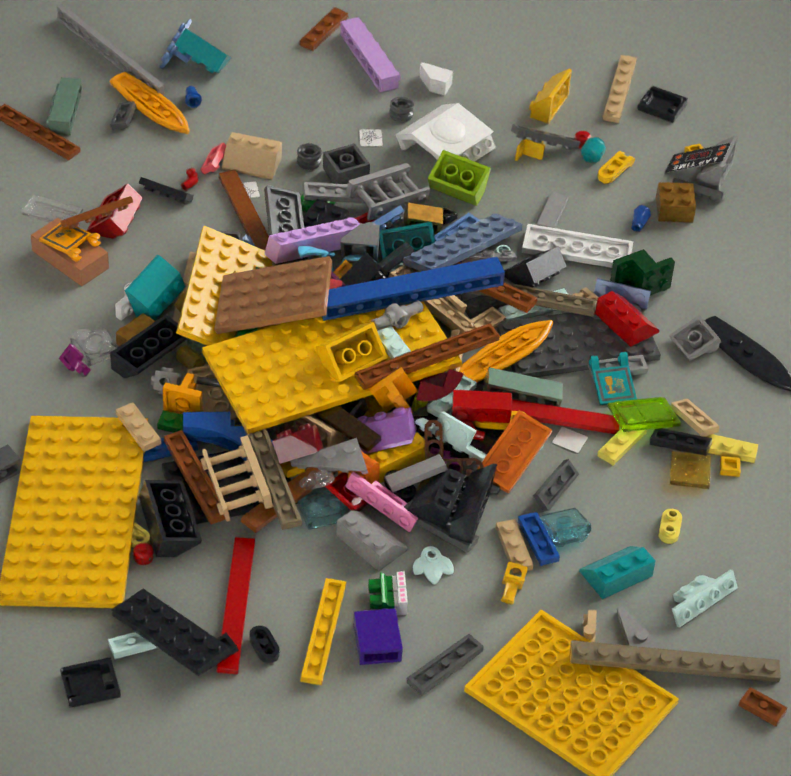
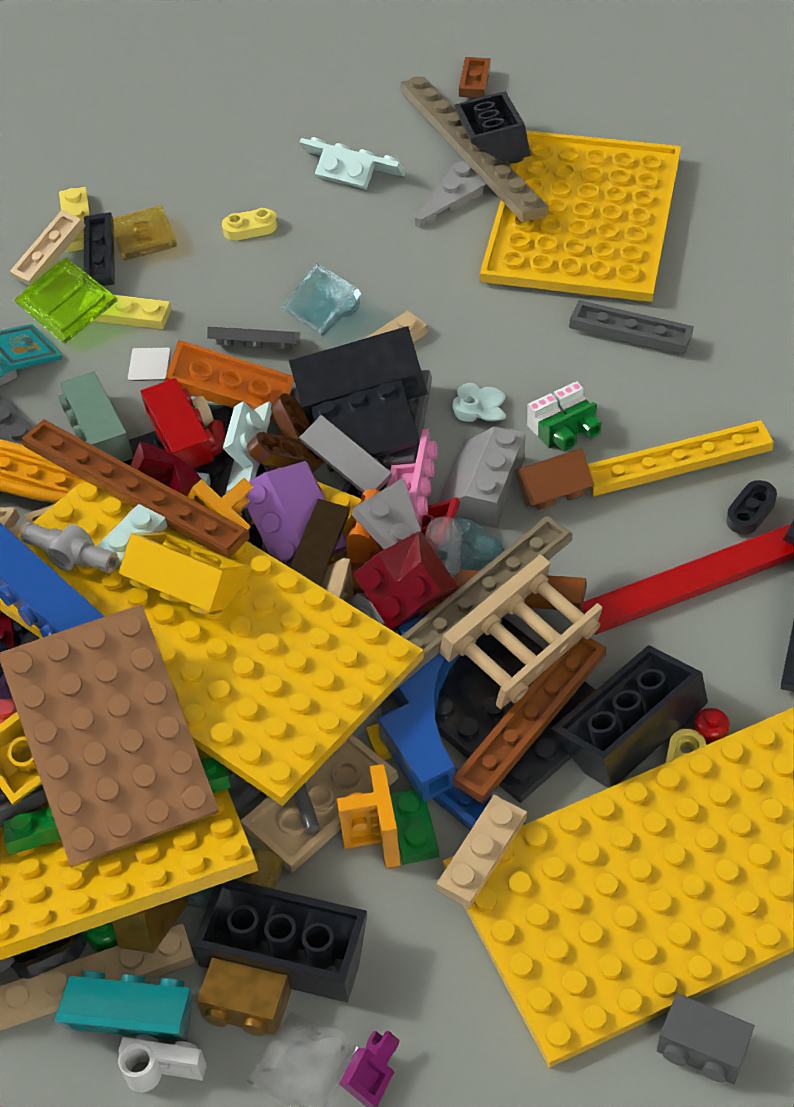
camera: 110 degrees left, 5 degrees up
(157, 379) = (340, 876): light grey brick -> none
(344, 560) = (554, 478): none -> dark orange brick
(377, 636) = (644, 400): dark purple brick -> none
(494, 429) = (202, 405): none -> tan tile
(512, 582) = (456, 312): yellow bracket -> none
(538, 539) = (360, 319): blue plate -> none
(568, 417) = (121, 381): red tile -> none
(589, 622) = (470, 226): tan plate -> none
(619, 570) = (360, 235): teal slope -> none
(674, 667) = (495, 127): none -> black slope
(730, 466) = (110, 203): yellow tile -> none

